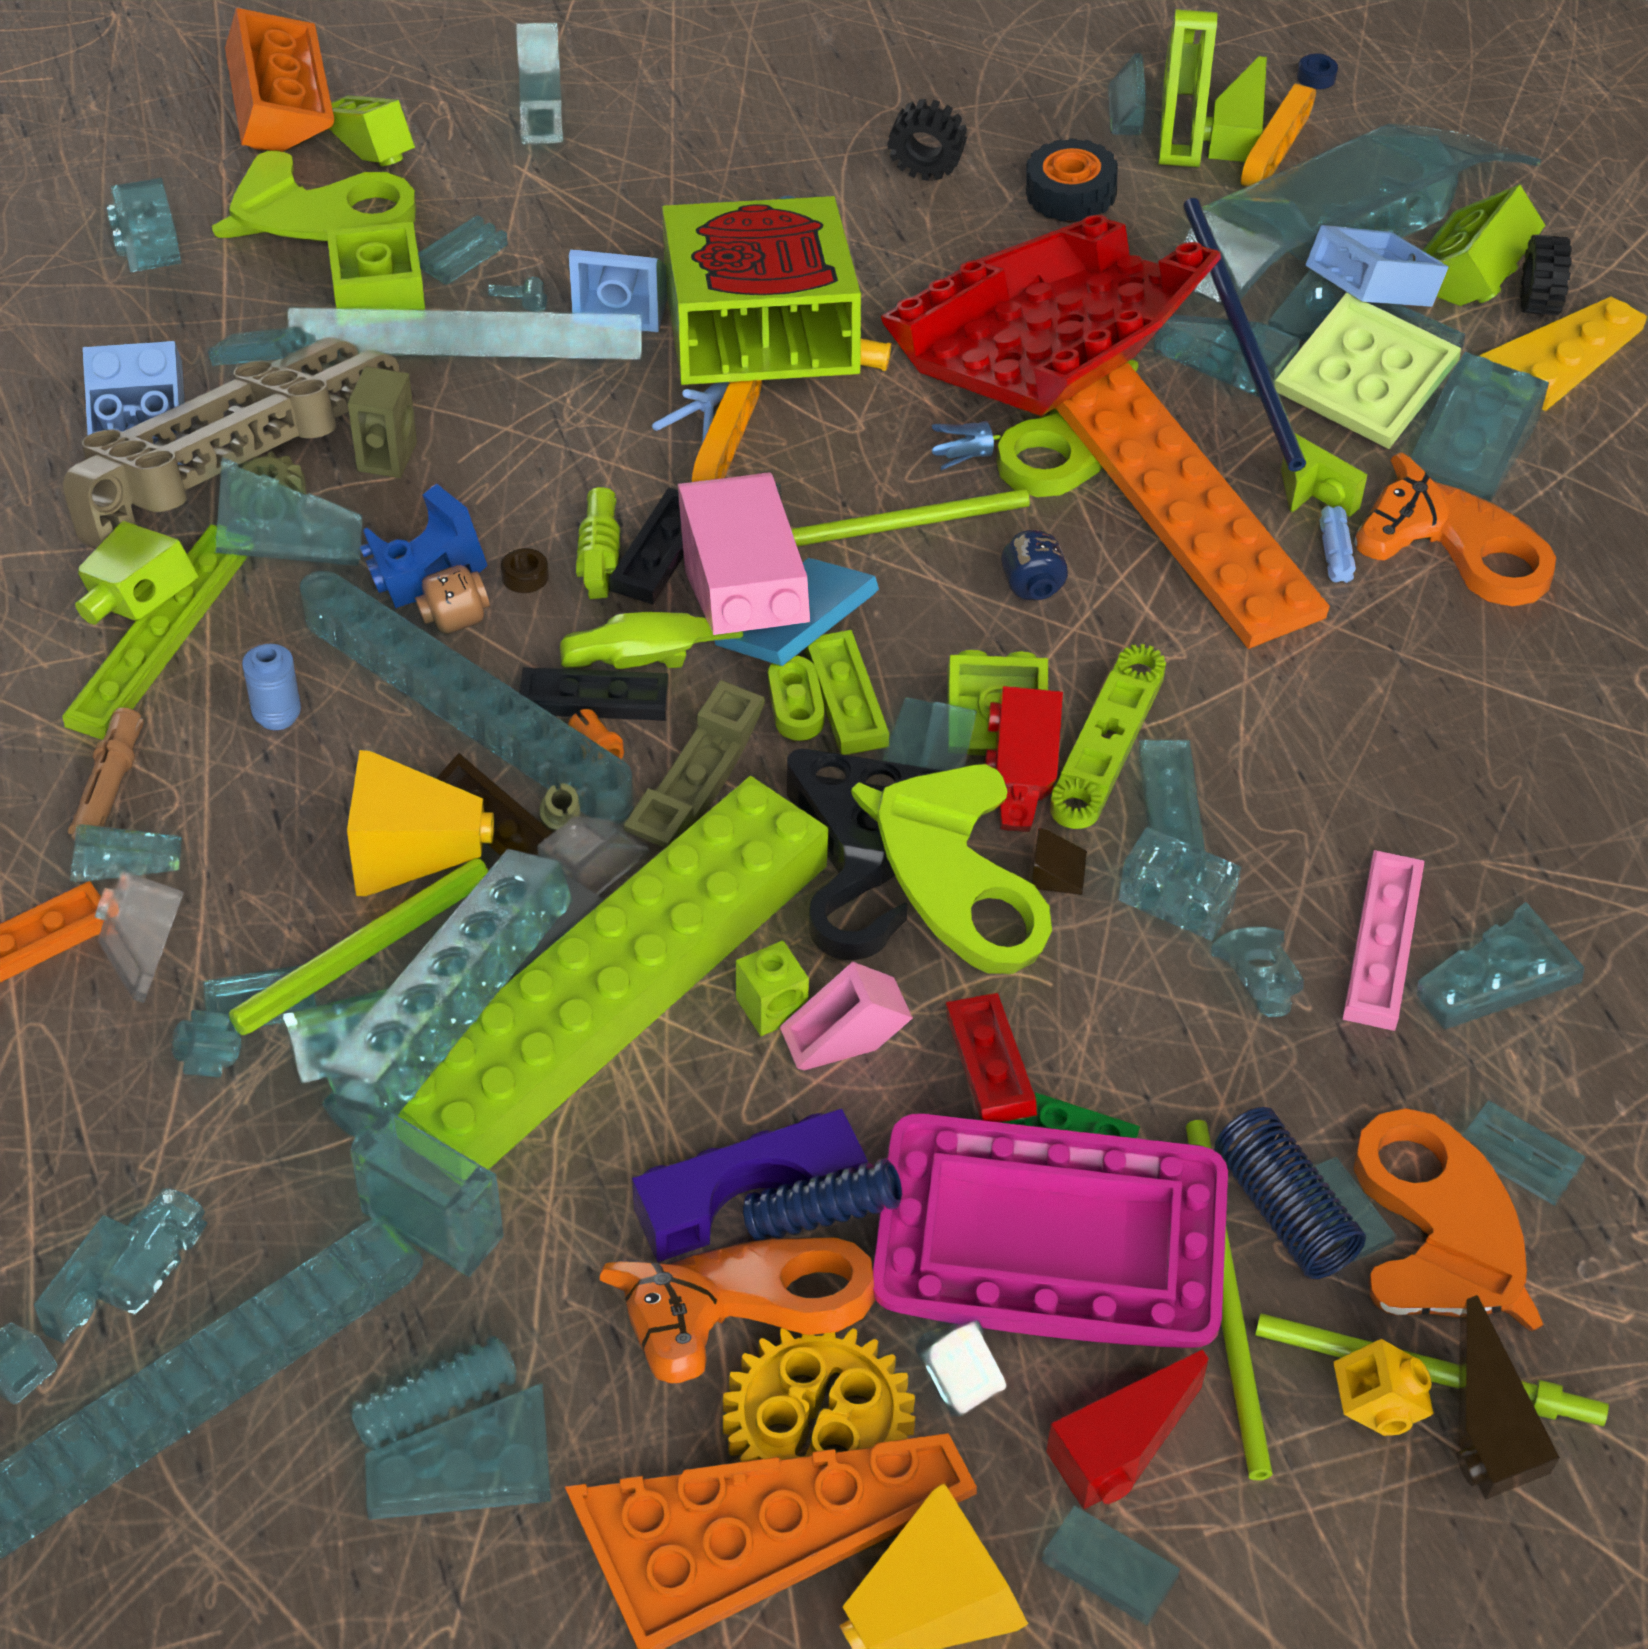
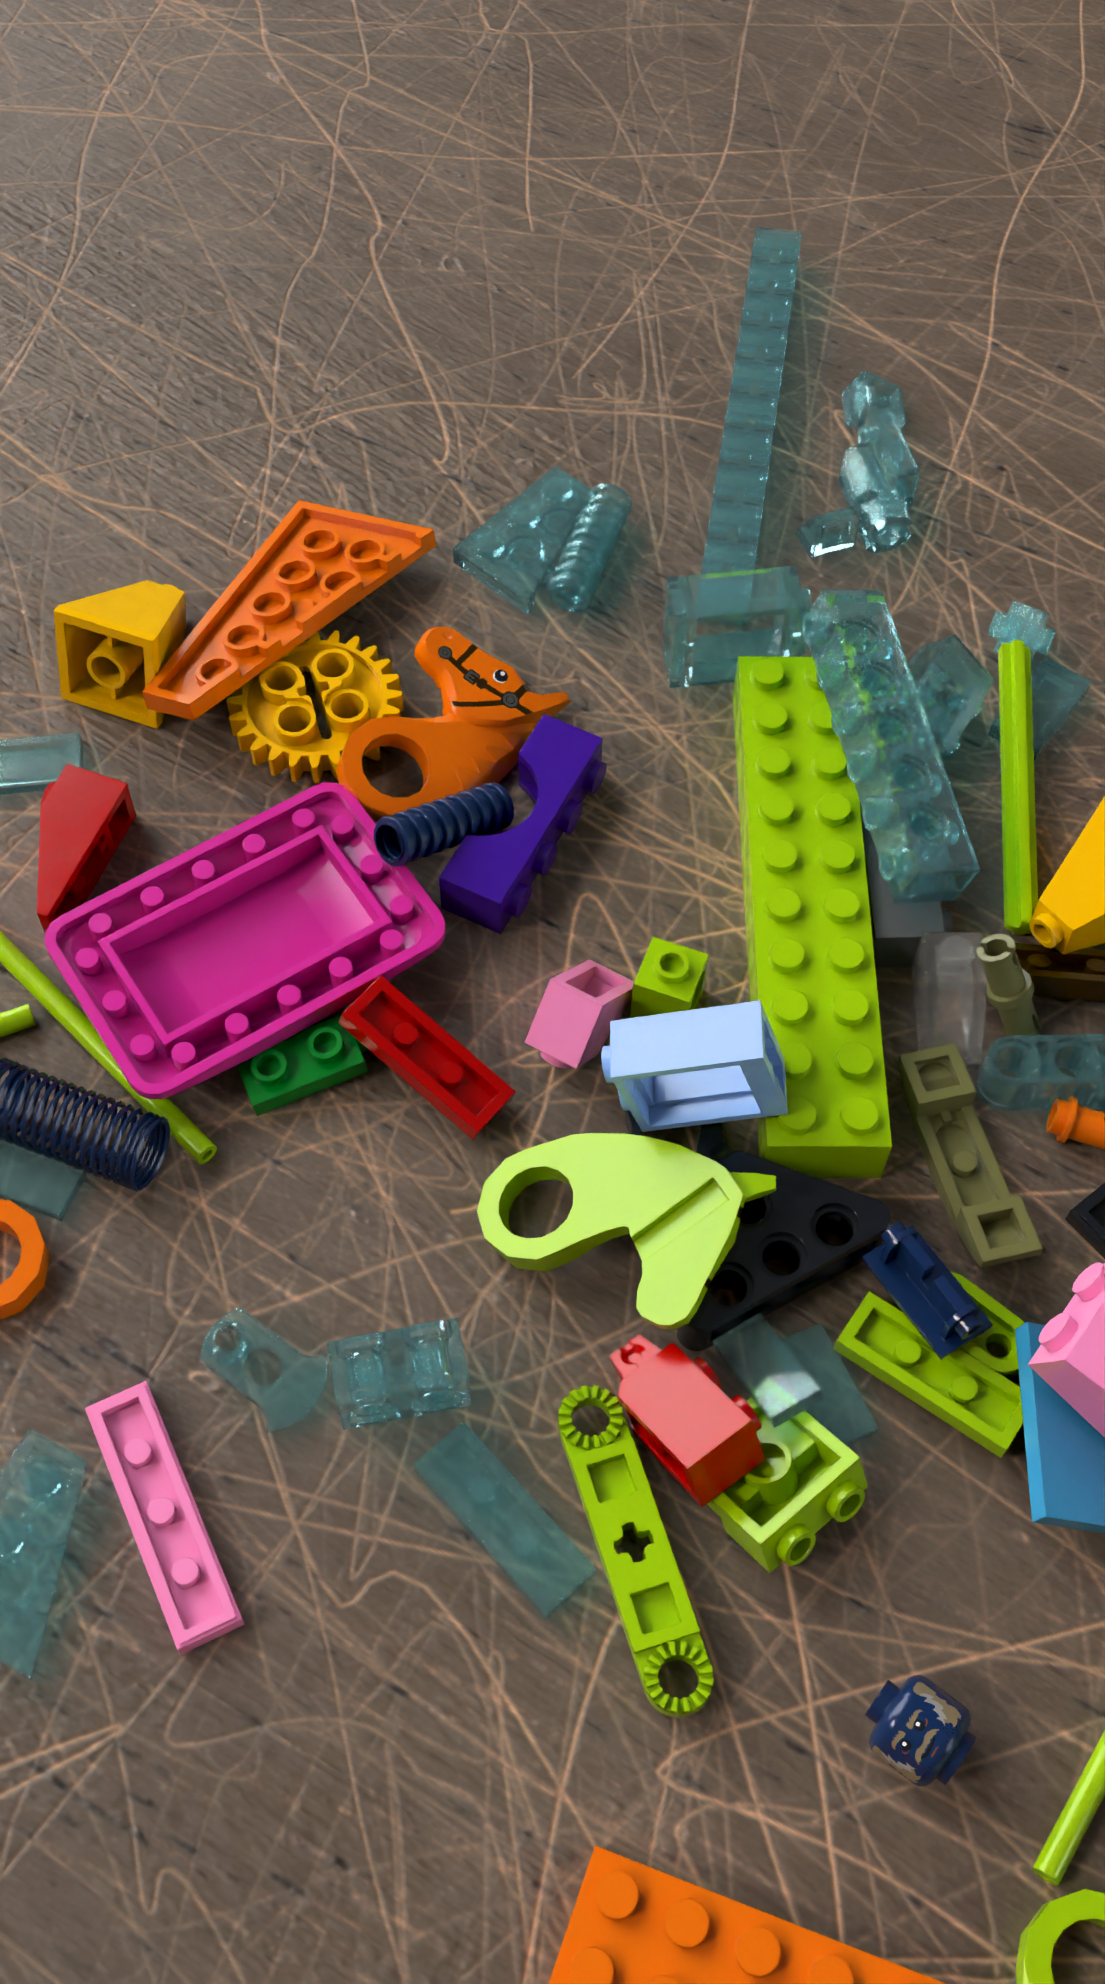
camera: 140 degrees right, 10 degrees up
(224, 1252) = (830, 531): none -> clear light blue slope
(813, 706) = (926, 1290): none -> dark blue hinge
(842, 858) = (697, 1066): none -> light blue window
(960, 1365) = (239, 799): clear light blue tile -> none
(1058, 864) = (548, 1335): dark brown slope -> none

